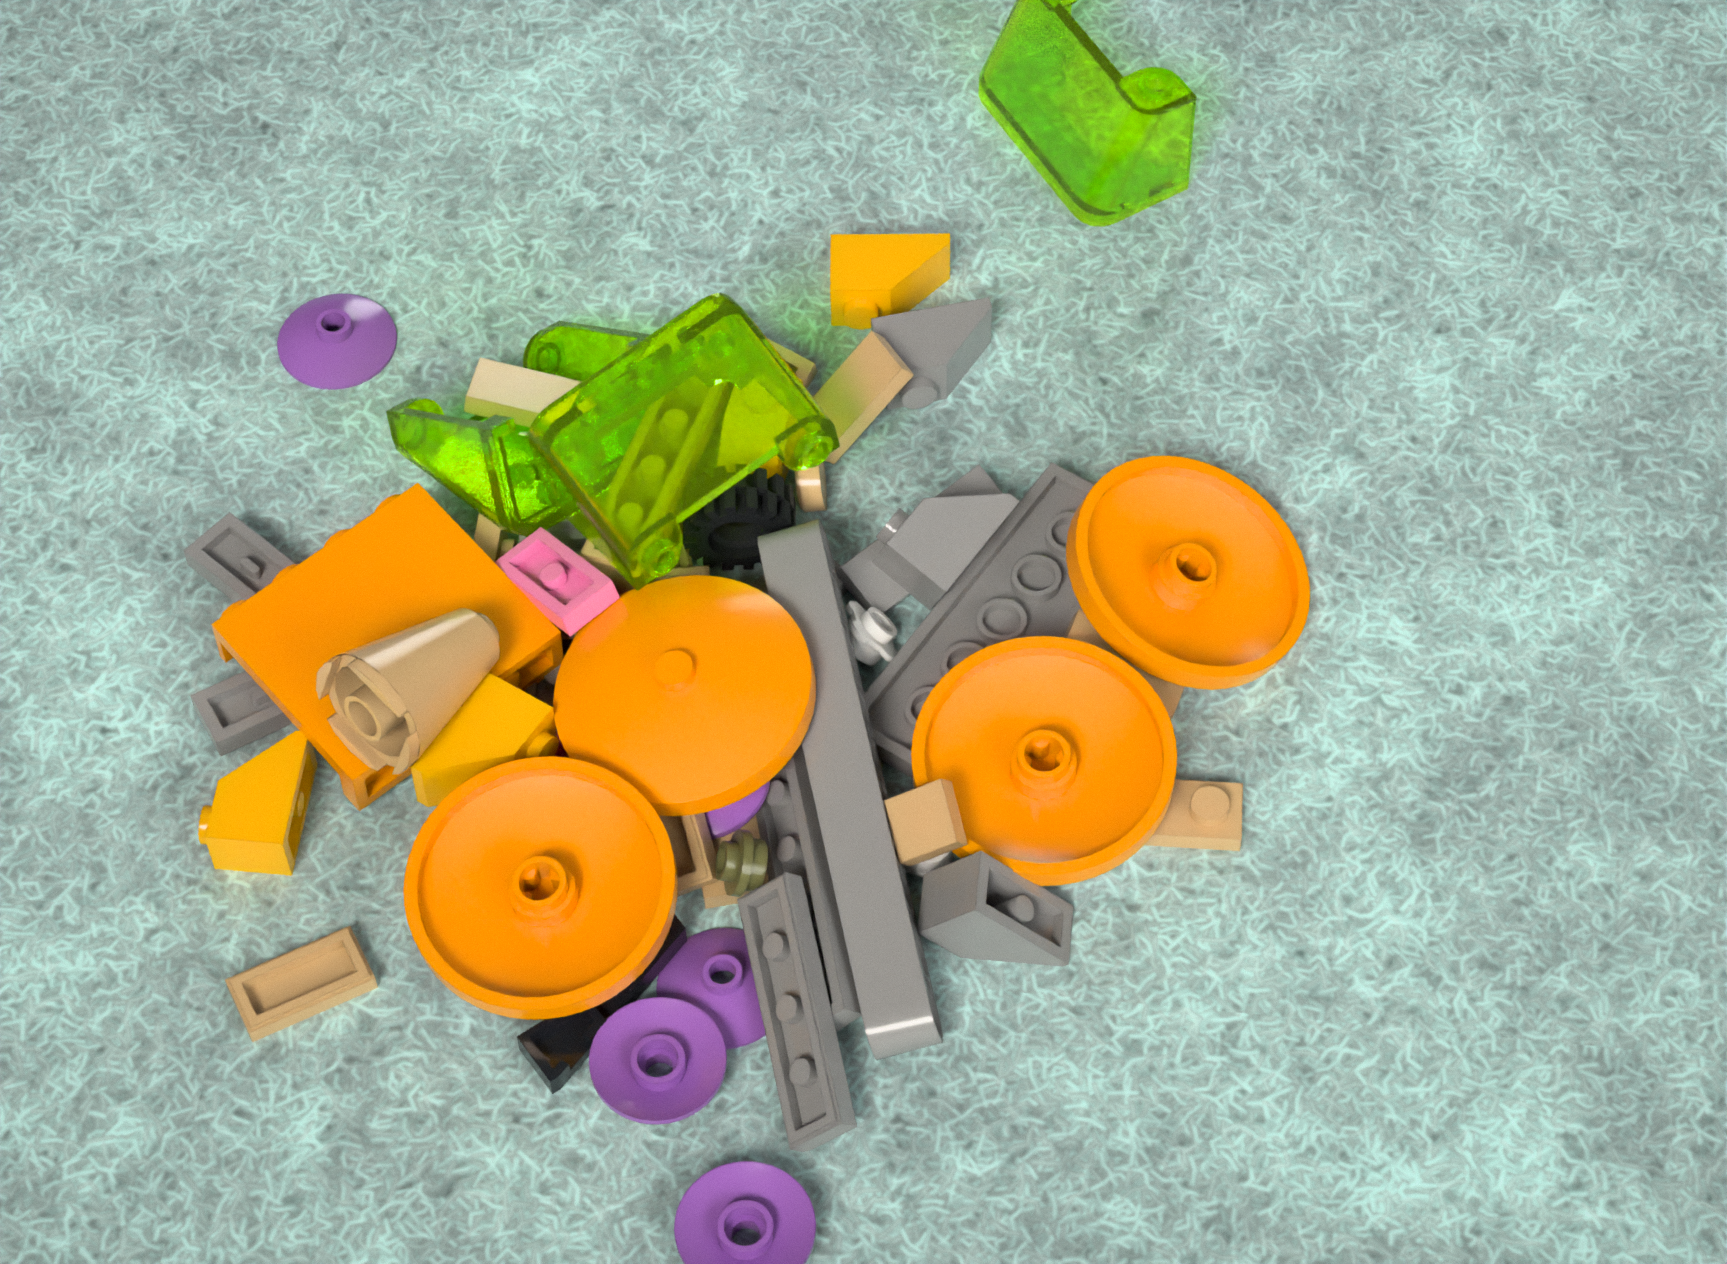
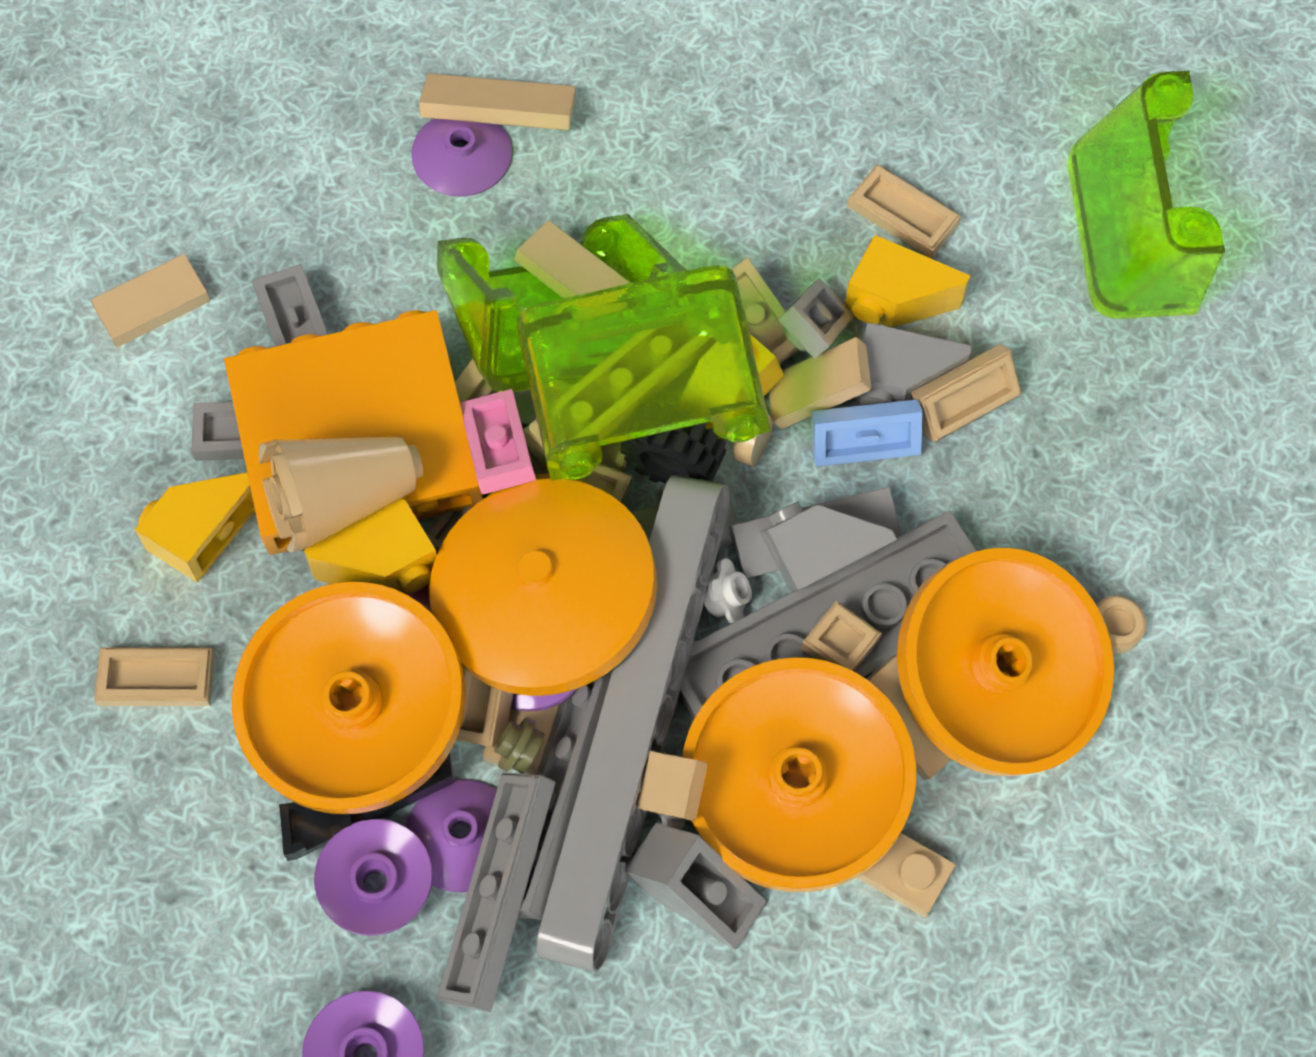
camera: 25 degrees right, 10 degrees up
(75, 621) = (150, 300): none -> tan tile
(350, 273) = (497, 101): none -> tan tile
(815, 338) = (815, 319): none -> light grey plate
(839, 207) = (904, 211): none -> tan tile
(925, 427) = (866, 432): none -> light blue plate
(1005, 348) = (967, 392): none -> tan tile
(1012, 616) = (841, 638): none -> tan tile
(1282, 493) = (1123, 621): none -> tan tile

